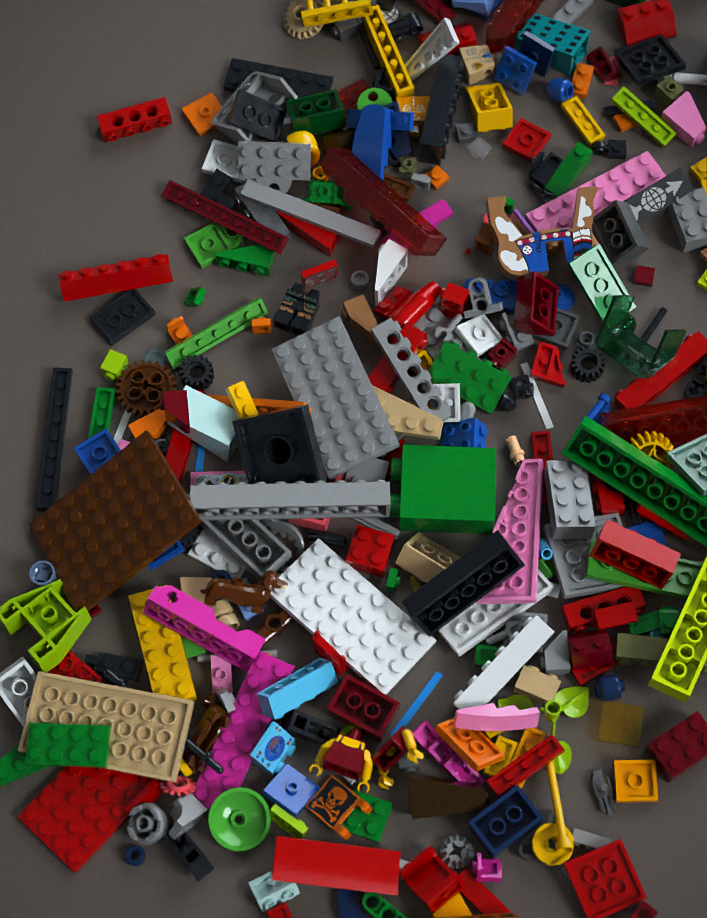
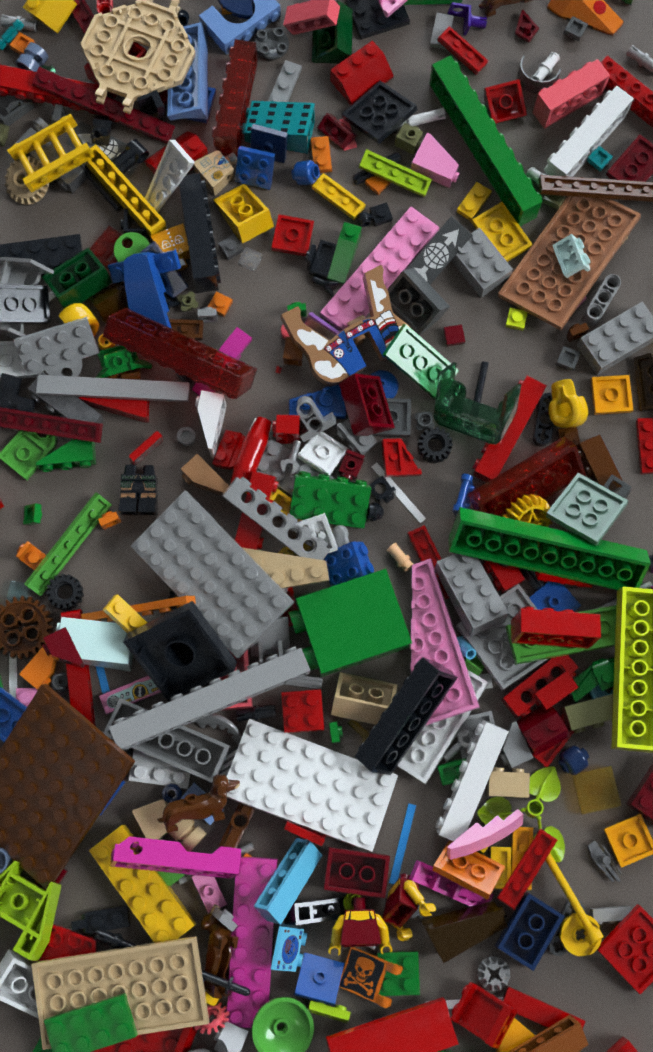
camera: 25 degrees left, 10 degrees up
(487, 869) = (529, 981): dark pink bracket -> none

